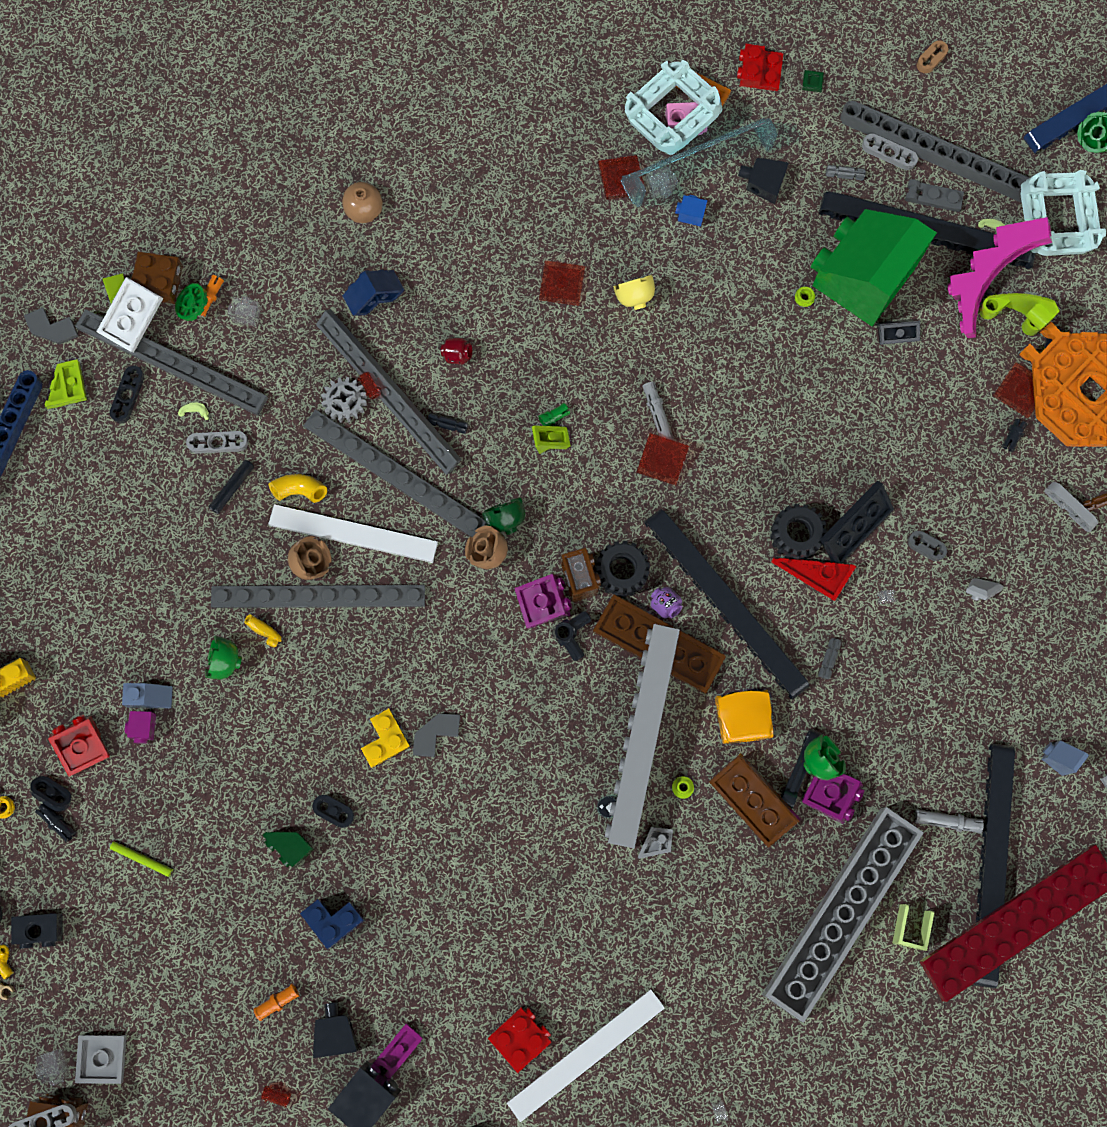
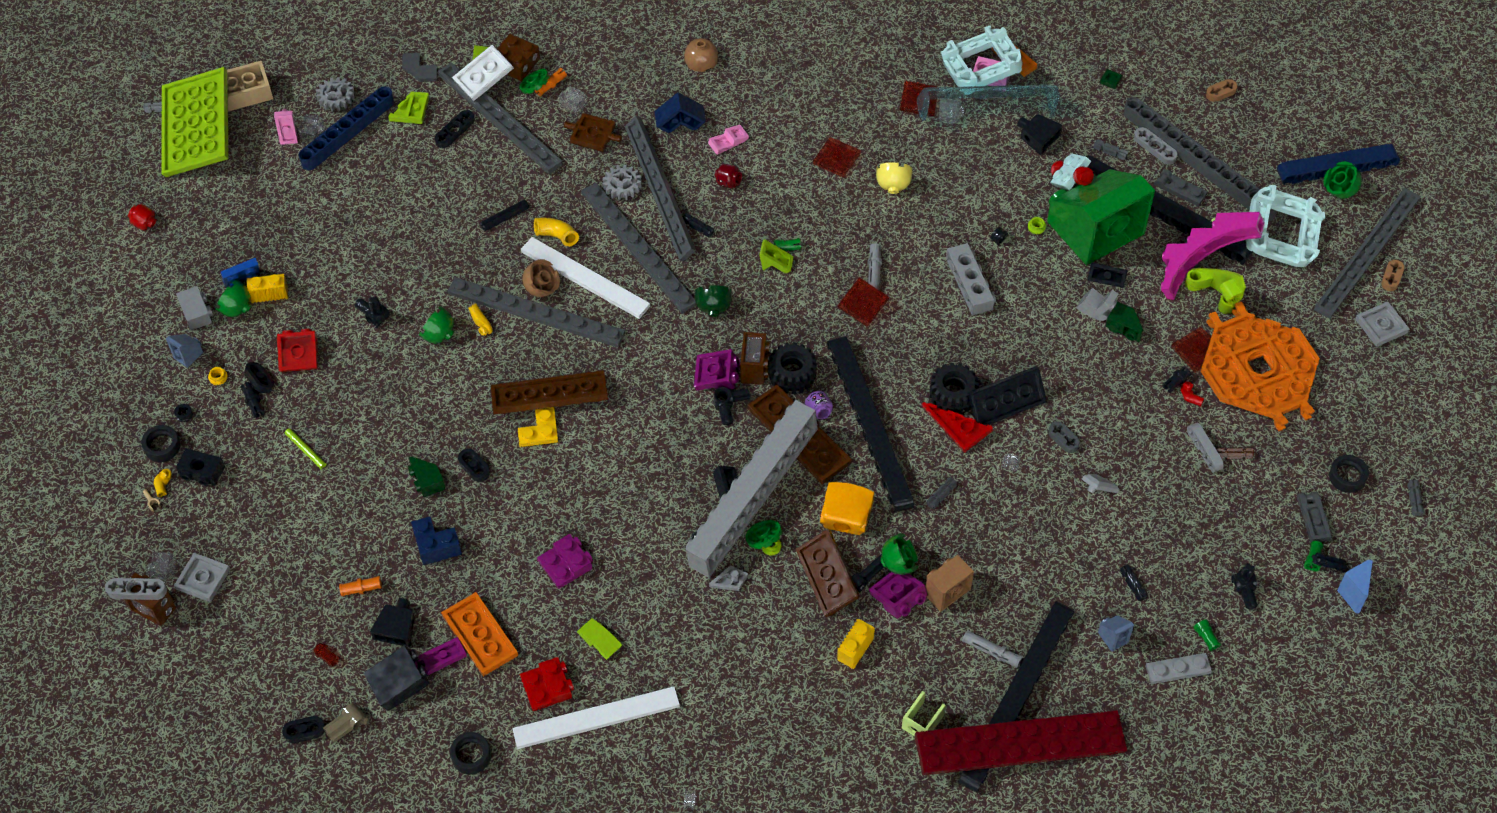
camera: 25 degrees right, 20 degrees down
(140, 726) = (352, 354): magenta brick -> none
(143, 665) = (374, 311): none -> black axle
(146, 695) = (366, 334): sand blue slope -> none
(194, 407) = (503, 154): yellowish green piece -> none
(211, 436) = (503, 176): light grey beam -> none
(284, 345) = (592, 132): none -> reddish brown plate
(369, 385) = (646, 178): clear red pin -> none
(376, 694) = (549, 392): none -> reddish brown plate
(426, 736) = (590, 434): dark grey tile -> none
(426, 1009) = (479, 634): none -> orange plate
(436, 302) = (732, 137): none -> bright pink slope
(479, 888) = (565, 561): none -> magenta plate
(486, 548) = (687, 318): medium nougat cylinder -> none
(553, 965) = (599, 637): none -> lime slope
(608, 730) = (723, 478): none -> black slope
(671, 779) = (759, 534): none -> green wheel
(691, 210) = (967, 136): blue brick -> none
(760, 68) = (1069, 56): red plate -> none
(763, 400) = (970, 279): none -> light grey brick
(771, 324) = (999, 235): none -> black bush
(814, 871) = (855, 643): none -> yellow brick
(825, 224) = (1071, 171): none -> light aqua plate
(842, 914) = (864, 683): light grey brick -> none
(883, 768) = (949, 582): none -> medium nougat brick
(904, 375) = (1097, 305): none -> light grey brick
(939, 384) = (1125, 321): none -> dark green slope
(1032, 449) = (1189, 395): none -> red arm
(1056, 690) = (1134, 583): none -> black axle

